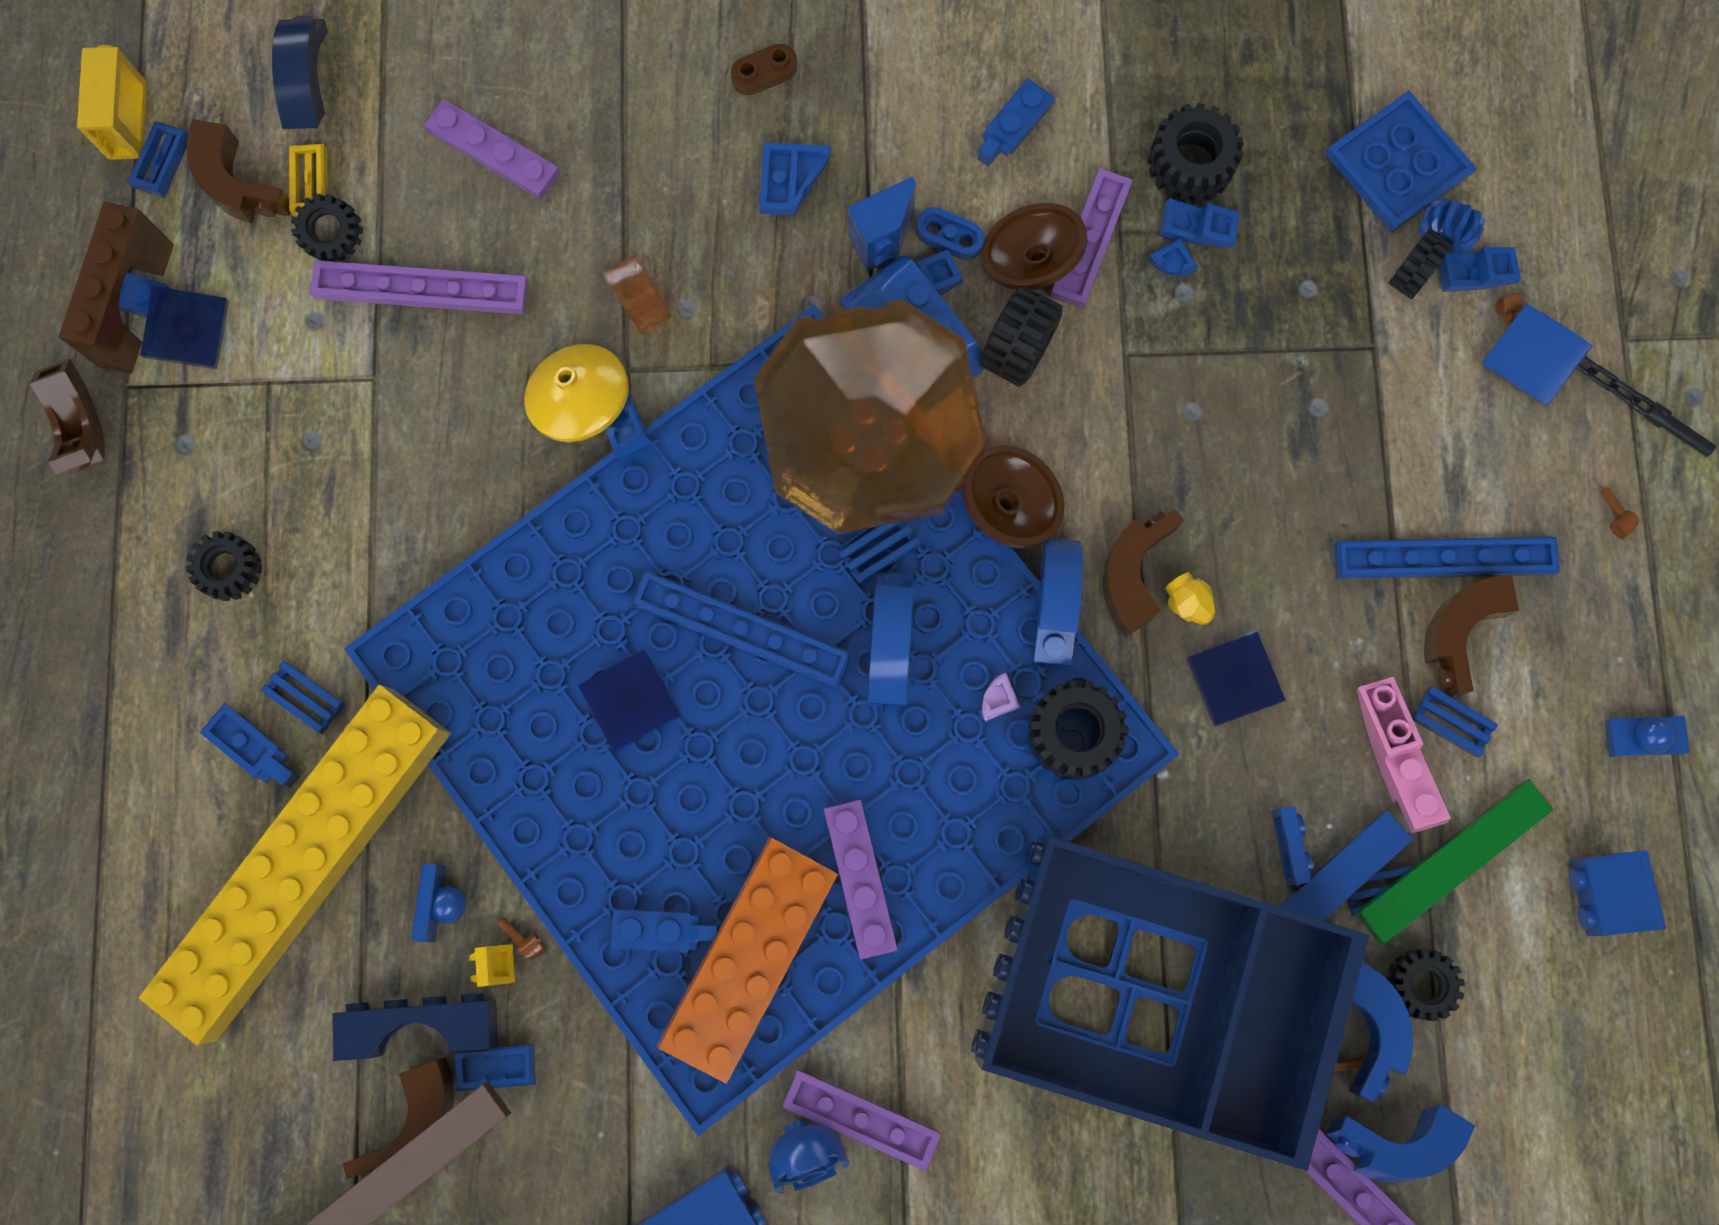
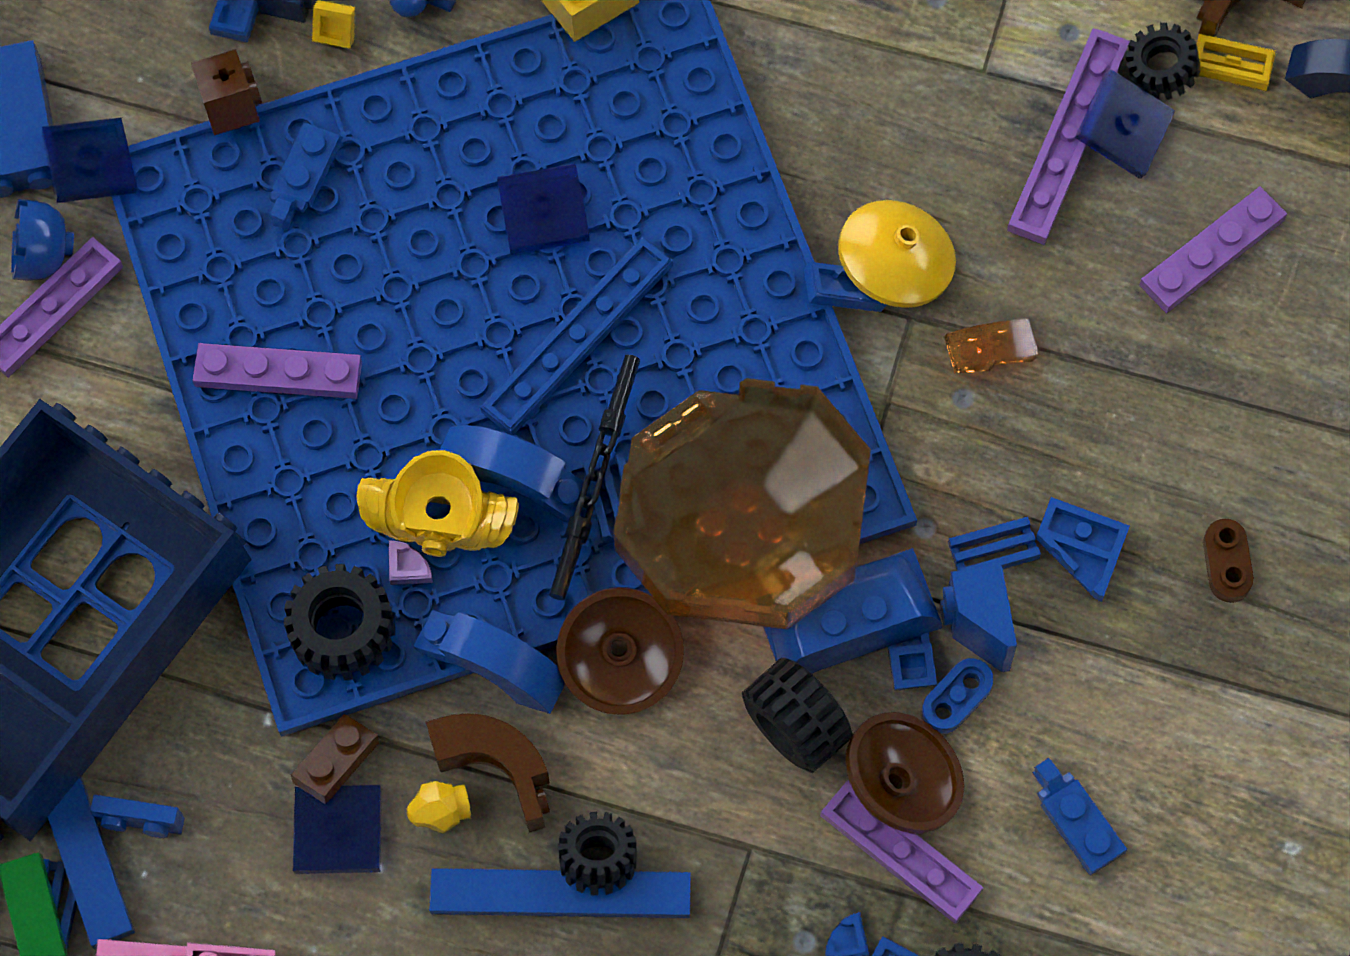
camera: 110 degrees right, 10 degrees down
(396, 243) = (1125, 124): none -> clear blue plate
(529, 947) = (340, 59): dark orange hand -> none
(599, 1036) = (227, 91): none -> reddish brown brick
(711, 1139) = (89, 160): none -> clear blue plate
(747, 960) = (242, 241): orange plate -> none
(798, 220) = (1020, 525): none -> blue tile
(921, 561) = (579, 527): none -> black piece
(943, 646) = (440, 477): none -> yellow piece
(1168, 445) = (597, 833): none -> black tyre
(1182, 700) = (335, 759): none -> reddish brown plate
(1220, 485) = (549, 894): none -> blue tile

